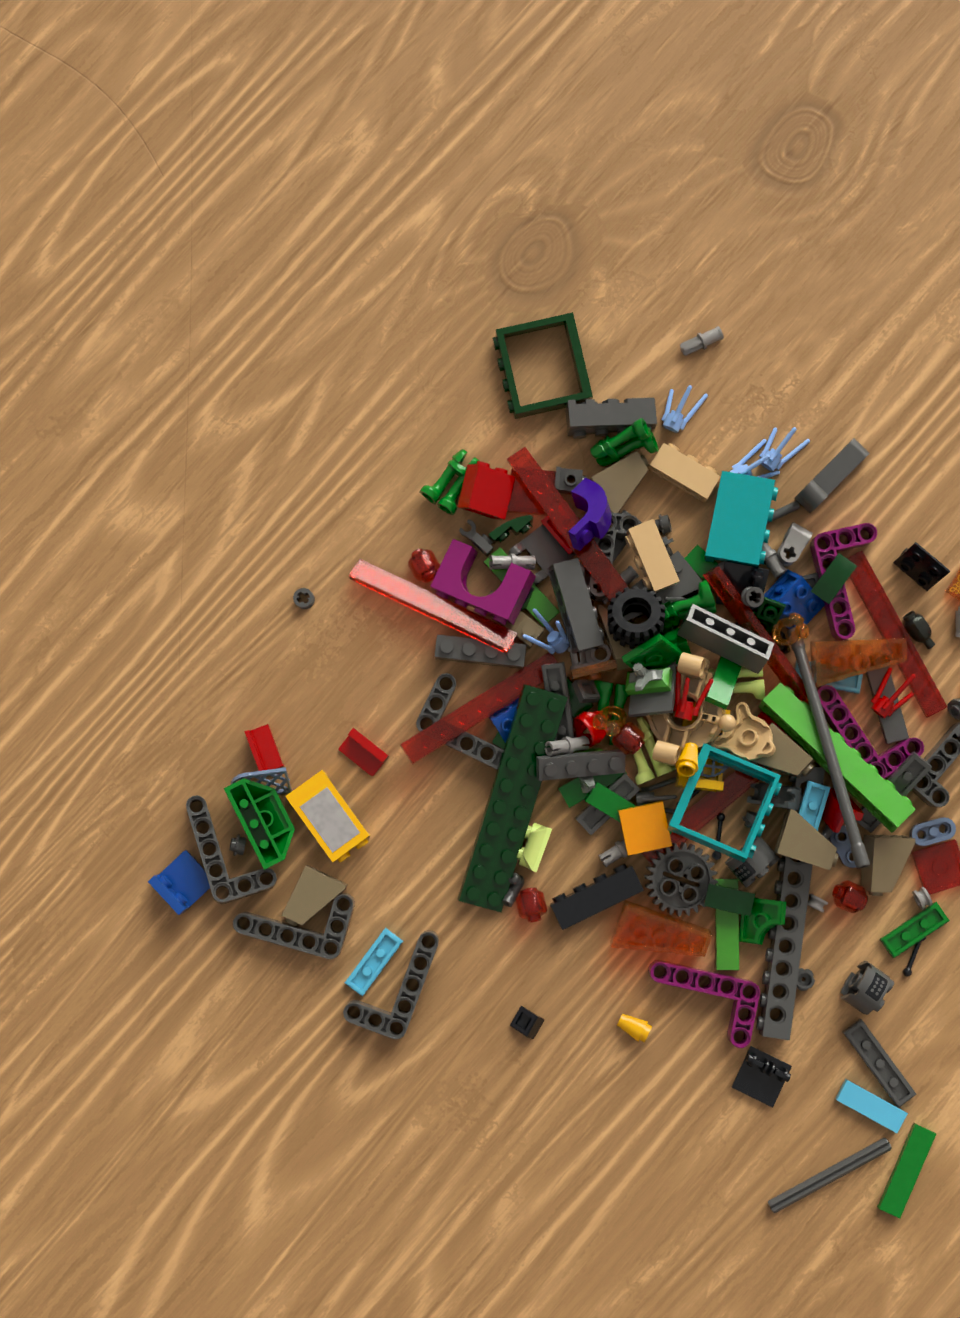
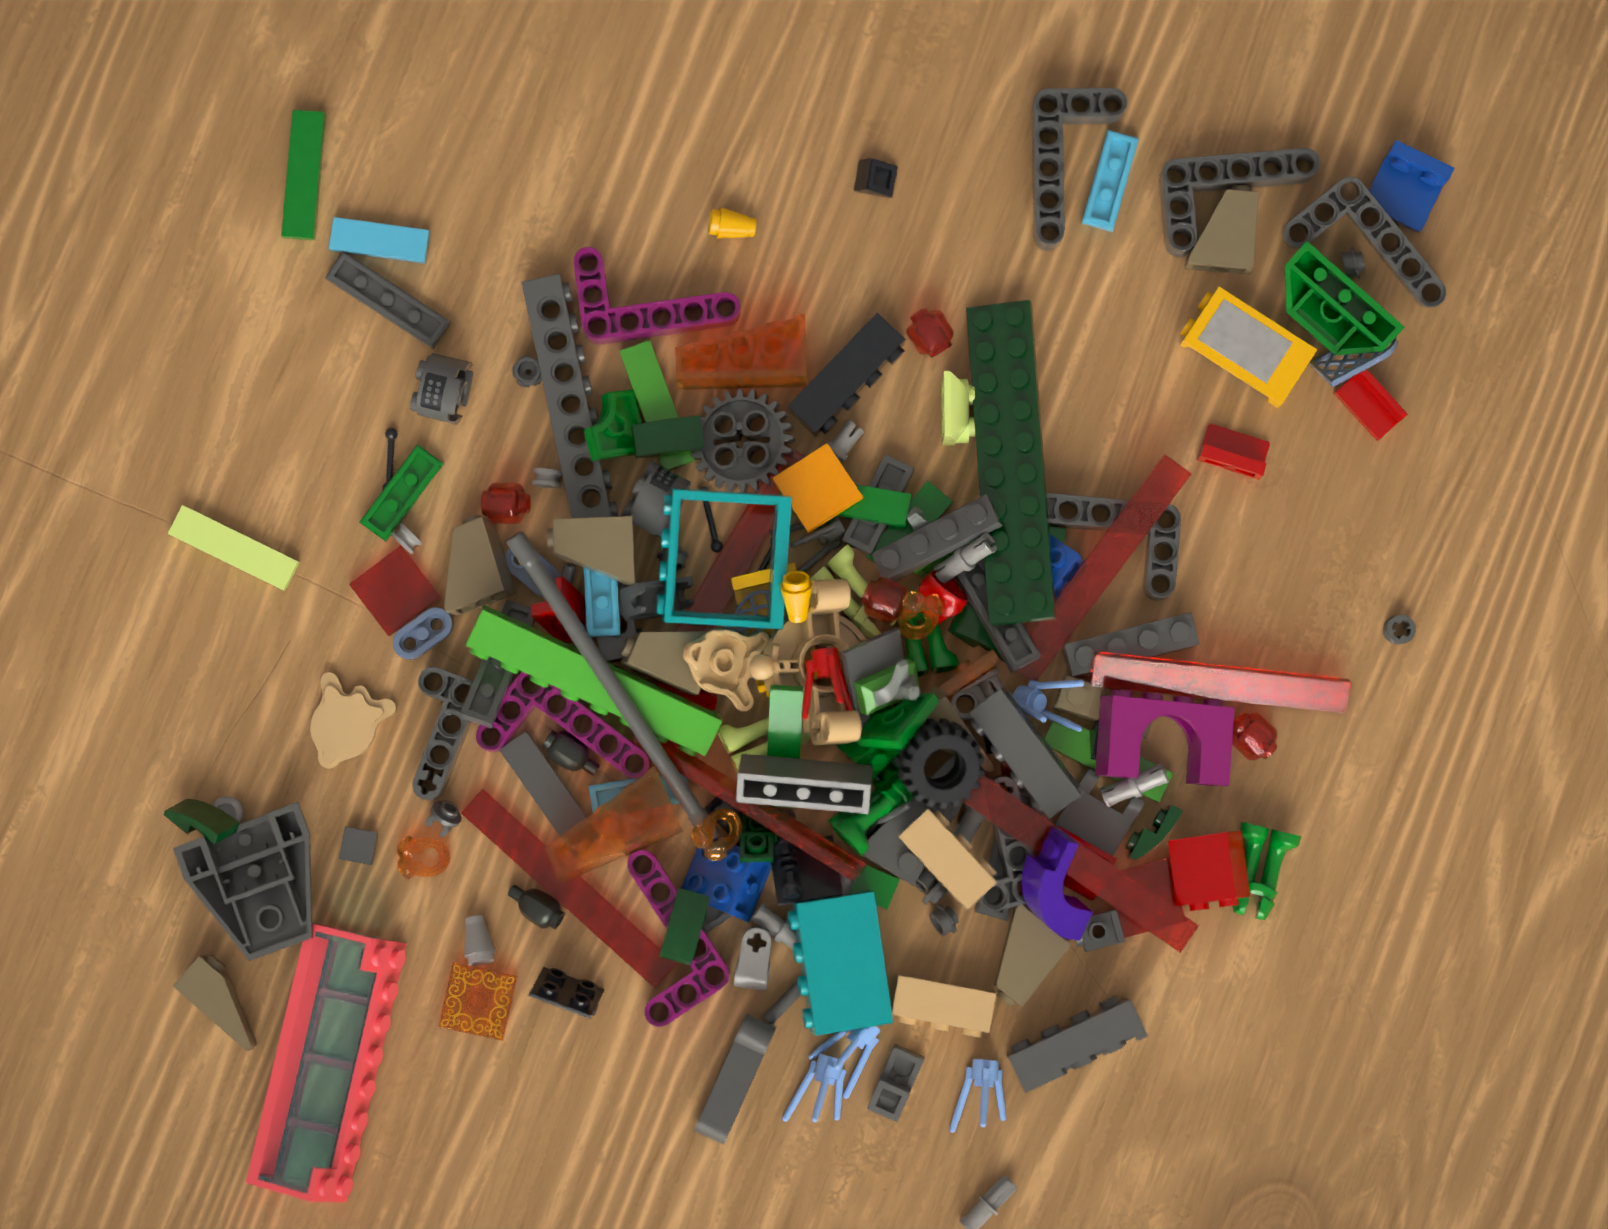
camera: 160 degrees right, 0 degrees up
(482, 542) = (1187, 798): dark grey plate -> none
(516, 885) = (960, 353): dark grey arm -> none
(577, 356) = (1252, 1062): dark green window -> none
(586, 691) = (966, 644): dark grey tile -> none
(636, 435) = (1034, 1023): green piece -> none
(731, 436) = (895, 1082): none -> dark grey slope
(746, 593) = (778, 854): dark grey bush -> none
(762, 1076) = (538, 224): black hinge -> none
(829, 1175) = (403, 131): dark grey axle -> none
(865, 718) = (569, 752): none -> pearl dark grey plant
(884, 705) = (550, 779): red plant -> none

